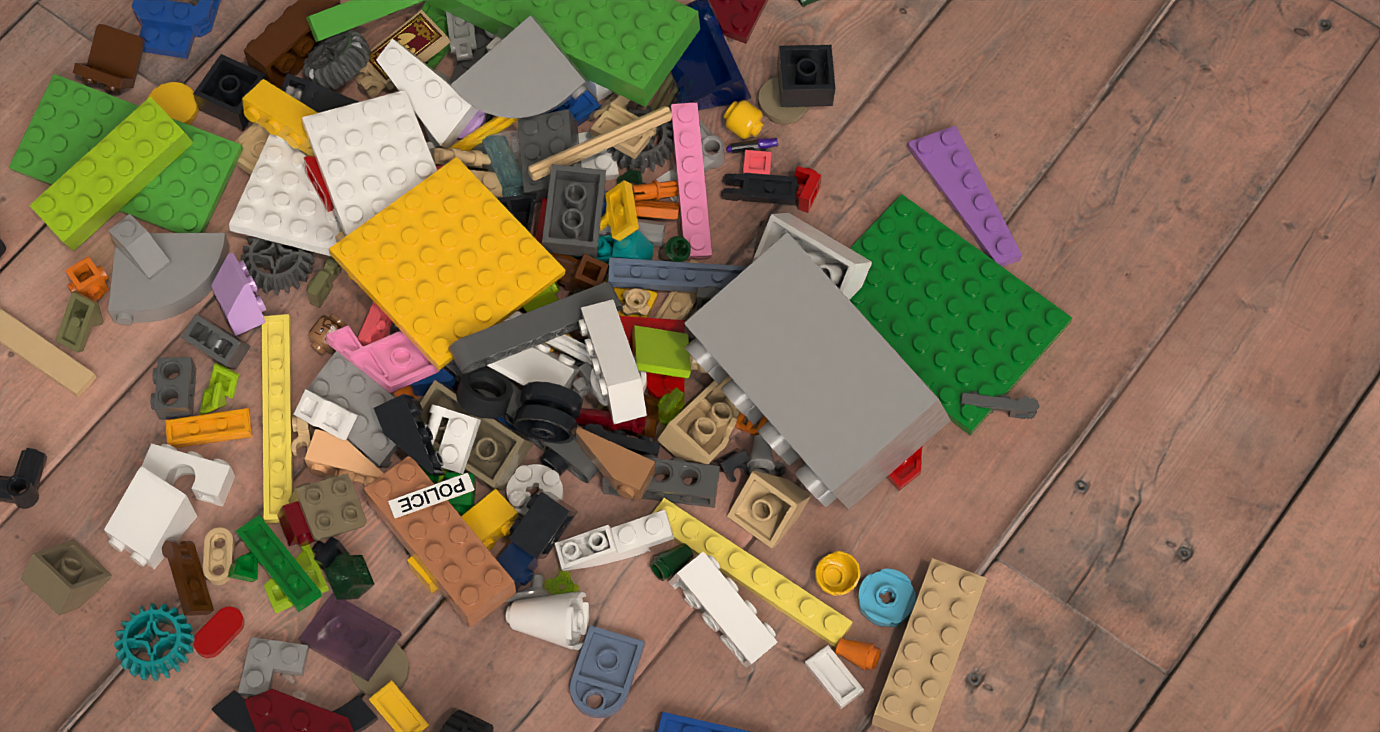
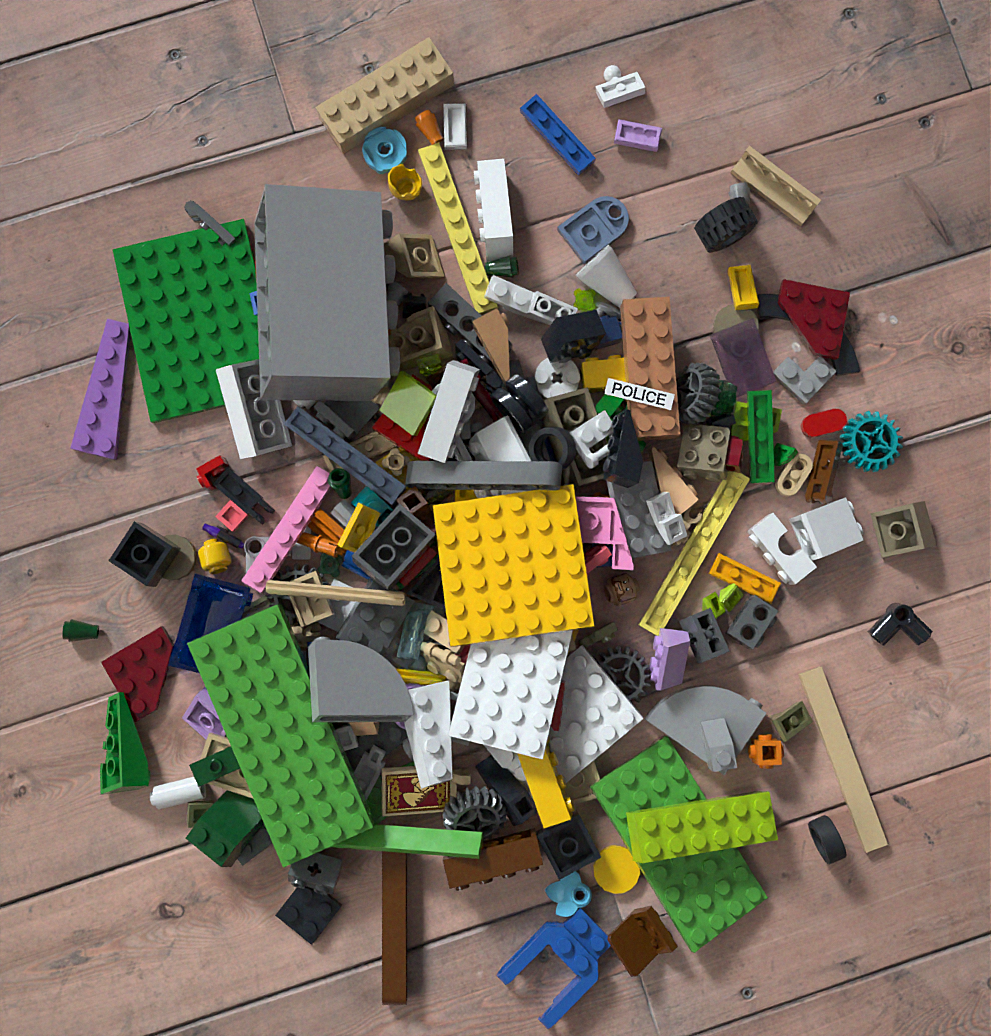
camera: 145 degrees left, 20 degrees up
(203, 55) = (564, 893): none -> medium azure plate
(376, 554) = (697, 392): none -> dark grey gear

